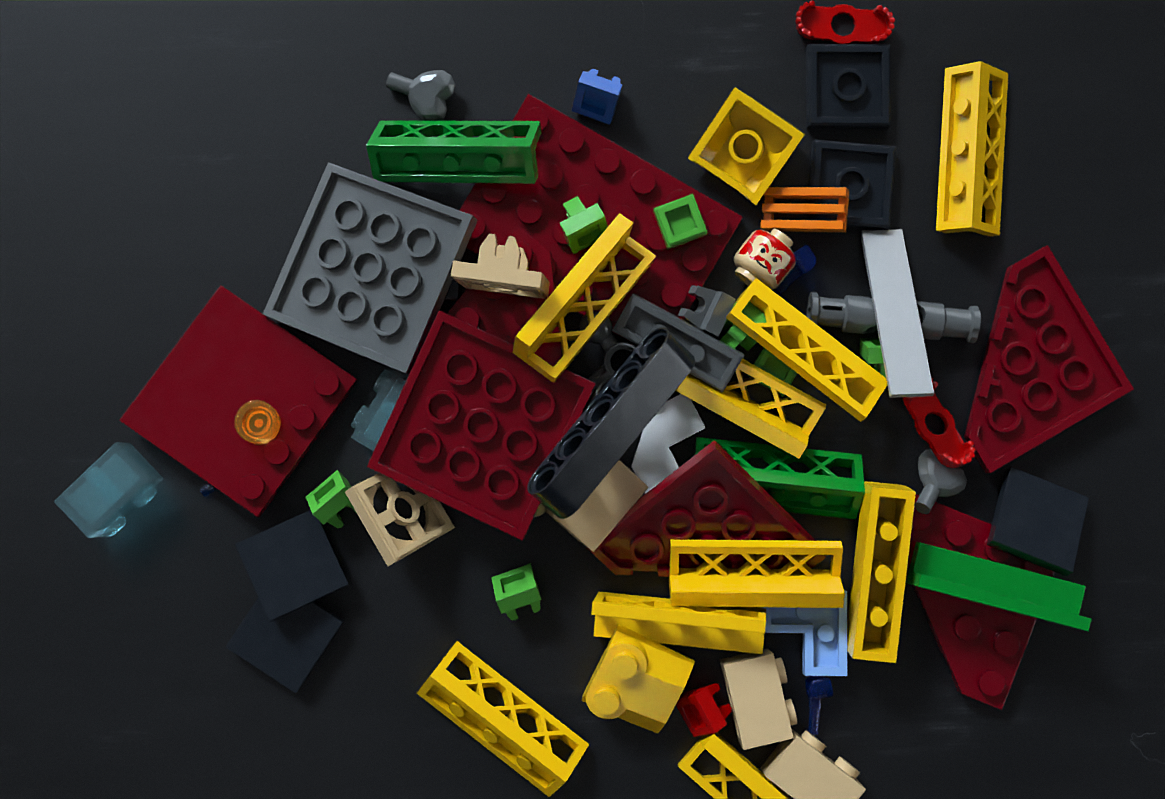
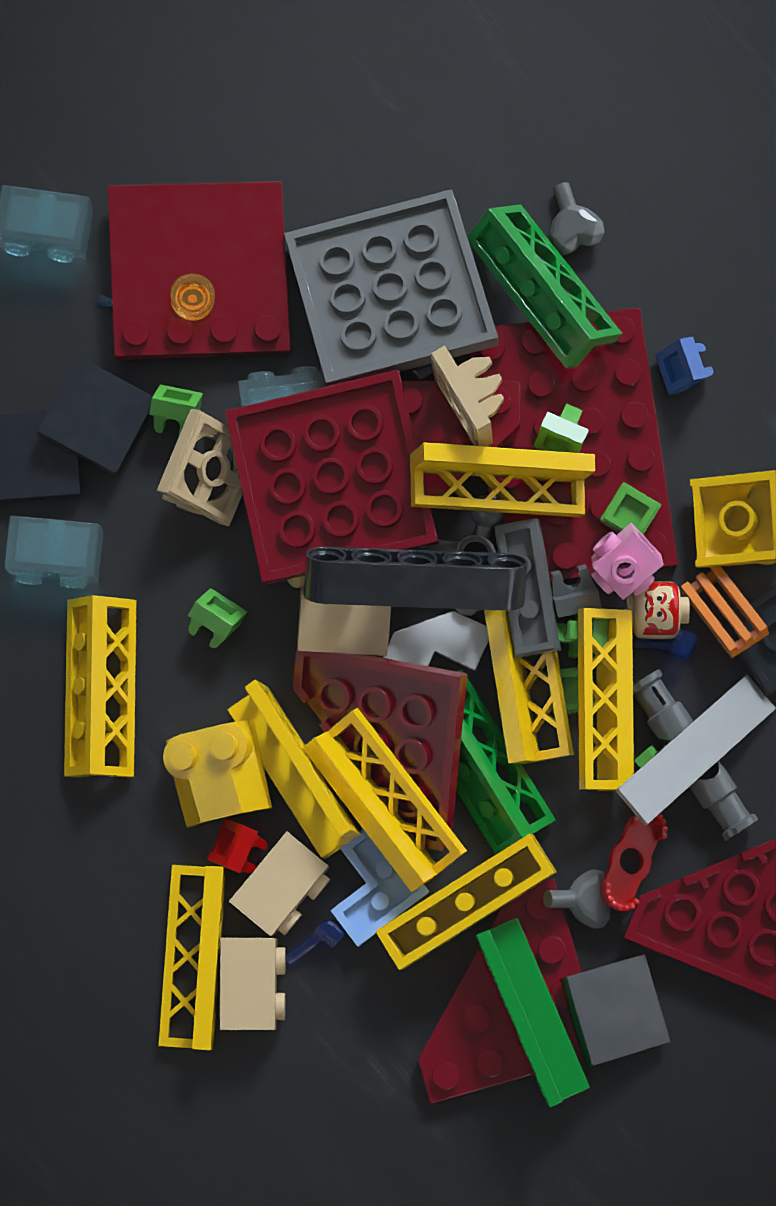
camera: 55 degrees right, 5 degrees down
(370, 675) = (54, 551): none -> clear light blue brick
(718, 254) = (627, 547): none -> bright pink brick

